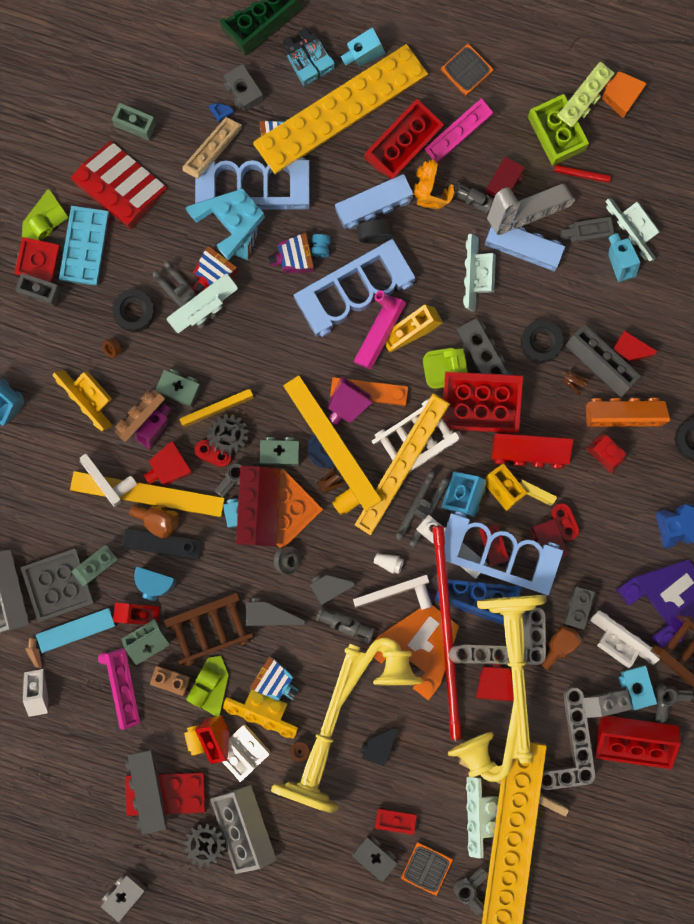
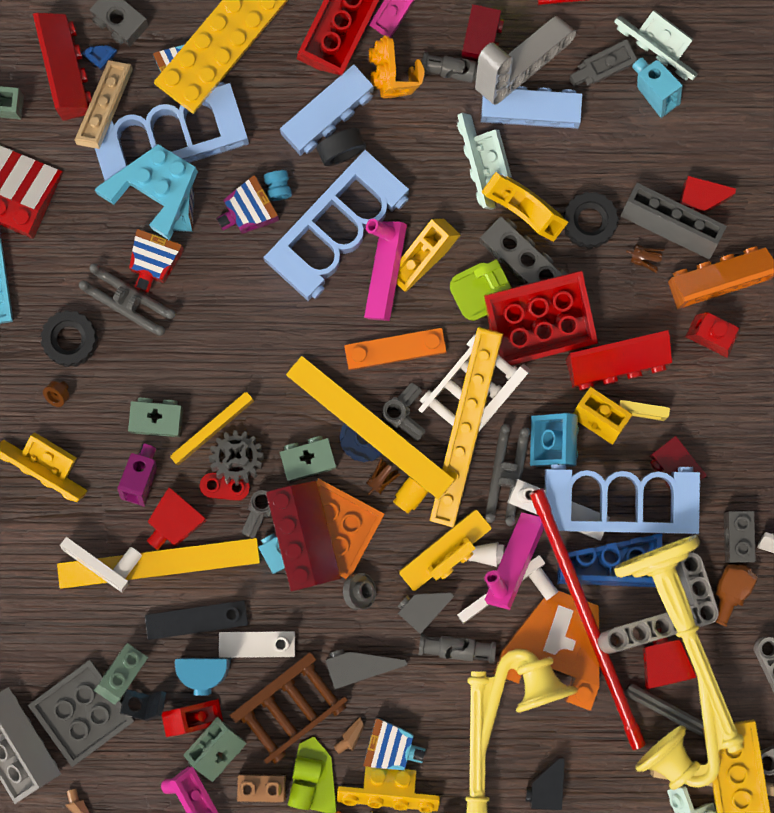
camera: 20 degrees left, 0 degrees up
(75, 630) = (122, 762): medium azure tile -> none
(109, 595) = (151, 705): none -> black bracket
(138, 414) = (117, 467): medium nougat plate -> none
(157, 519) = (181, 591): dark orange piece -> none
(191, 109) = (62, 64): none -> red slope
(200, 575) = (256, 644): none -> white piece
(202, 304) = (154, 304): light aqua bracket -> none
(247, 664) = (350, 737): none -> medium nougat bar
(347, 401) = (373, 369): magenta torso -> none
(358, 446) = (402, 404): none -> dark grey axle
(359, 551) = (446, 552): none -> yellow bracket
(396, 585) = (507, 579): none -> dark pink piece
(483, 716) = (665, 709): none -> dark grey axle
(497, 551) = (617, 498): red plate -> none
(498, 315) = (525, 204): none -> yellow arch
(566, 521) = (689, 435): red plate -> none

